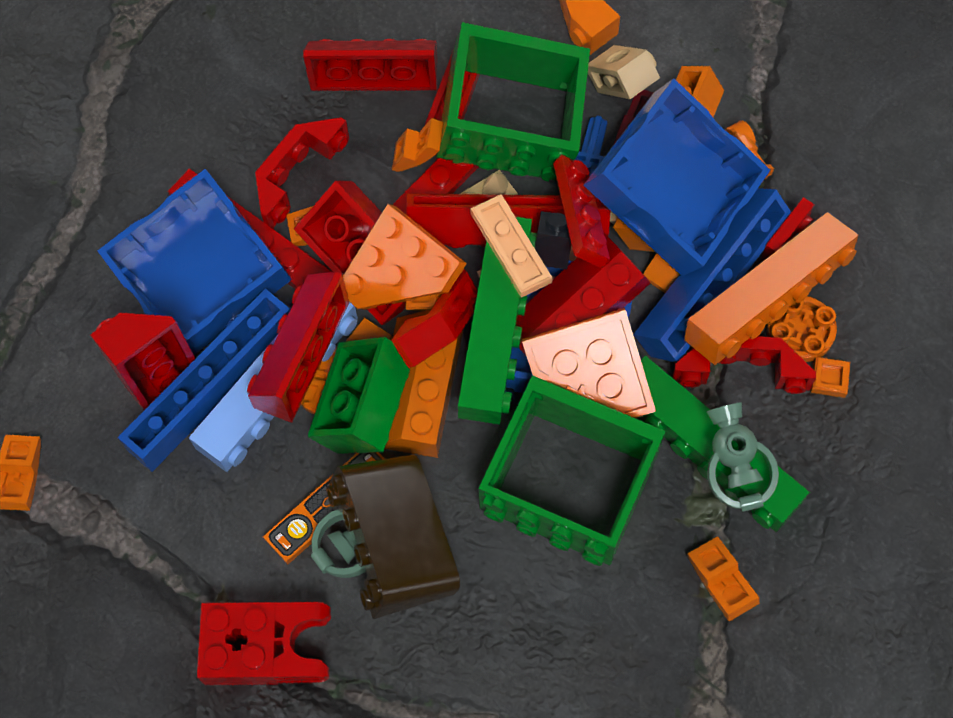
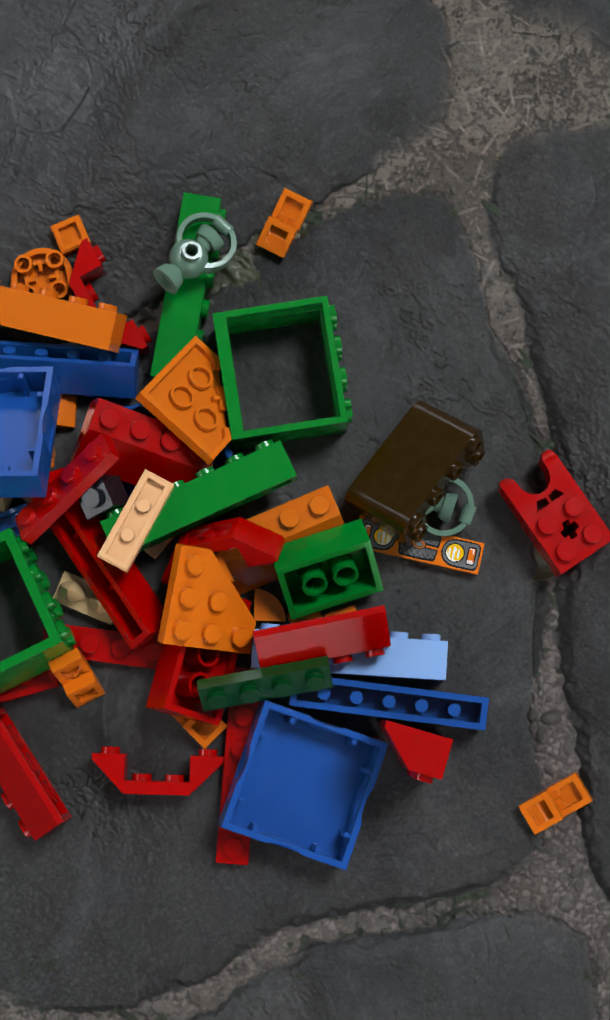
camera: 125 degrees left, 15 degrees up
(290, 282) = (264, 683): none -> dark green plate

